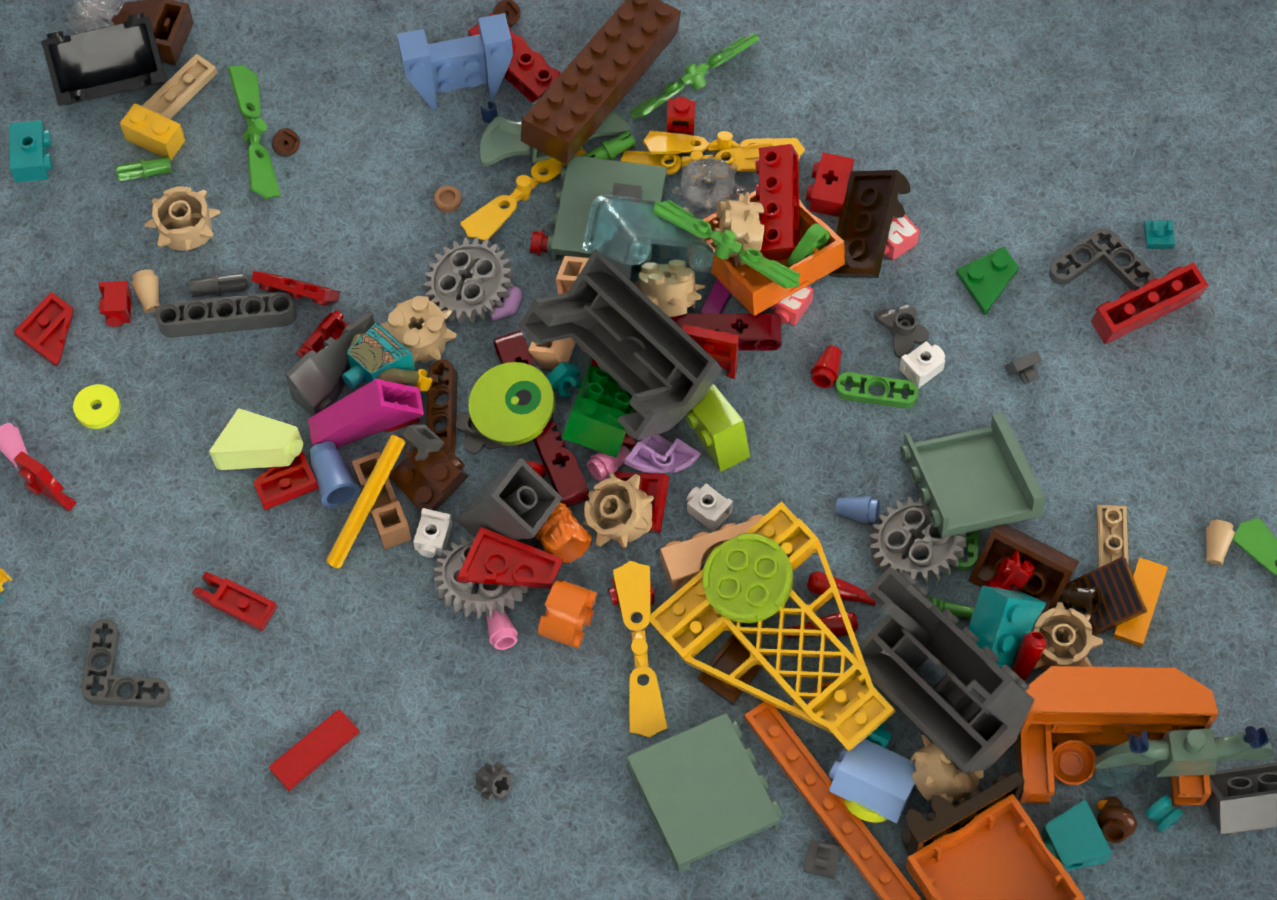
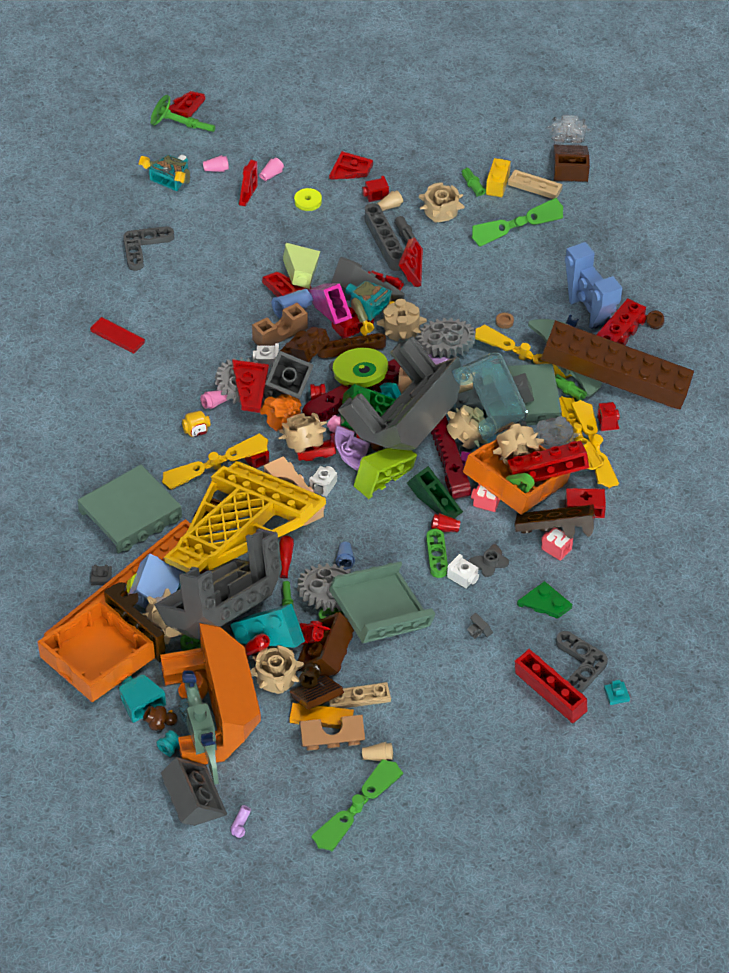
camera: 75 degrees right, 15 degrees down
(29, 151) = (465, 130): teal brick -> none
(104, 60) = (529, 137): black windscreen -> none
(237, 601) = (199, 283): red hinge -> none
(285, 142) = (515, 238): reddish brown tile -> none
(365, 501) = (274, 314): yellow axle -> none
(423, 439) = (316, 324): dark grey tile -> none
(493, 781) = (119, 411): dark grey gear -> none
(547, 664) = (195, 423): none -> yellow head
(567, 613) = (227, 420): orange brick -> none
(693, 75) = (644, 419): bright green piece -> none
(719, 345) = (433, 456): red wing -> none
(726, 244) = (486, 456): bright green piece -> none
(747, 578) = (266, 489): lime tile -> none
(769, 367) = (433, 493): none -> dark green slope
(1185, 570) = (313, 735): none -> medium nougat arch

